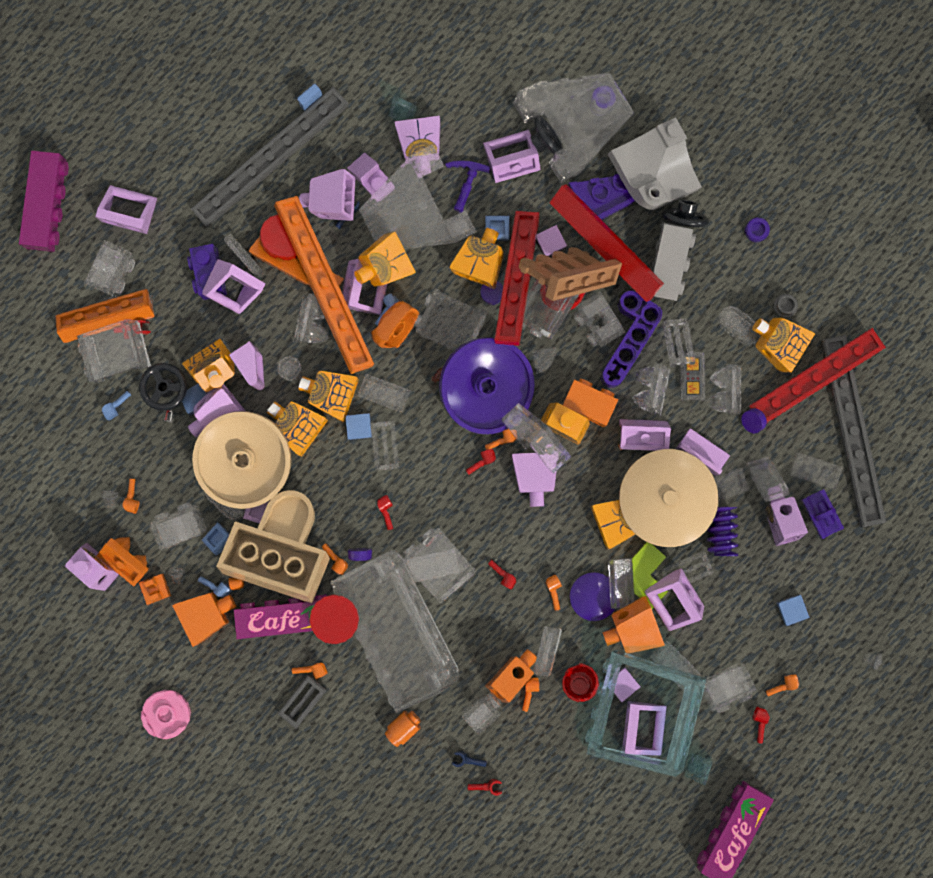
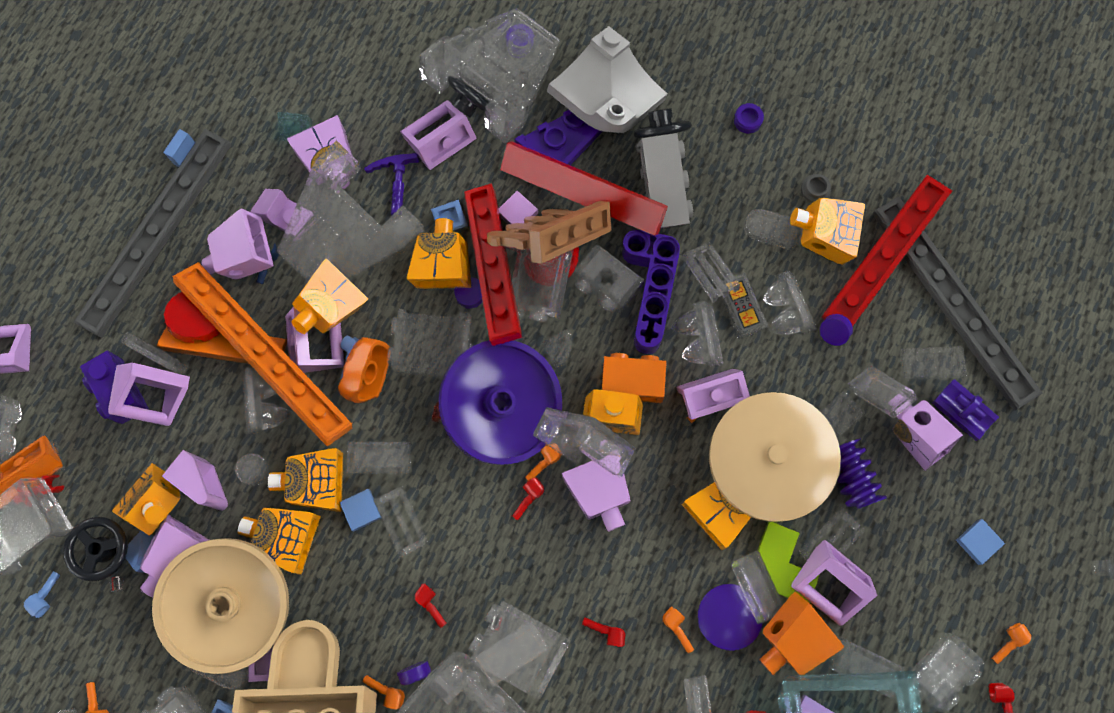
camera: 20 degrees left, 10 degrees down
(704, 450) = (793, 384): lavender panel -> none

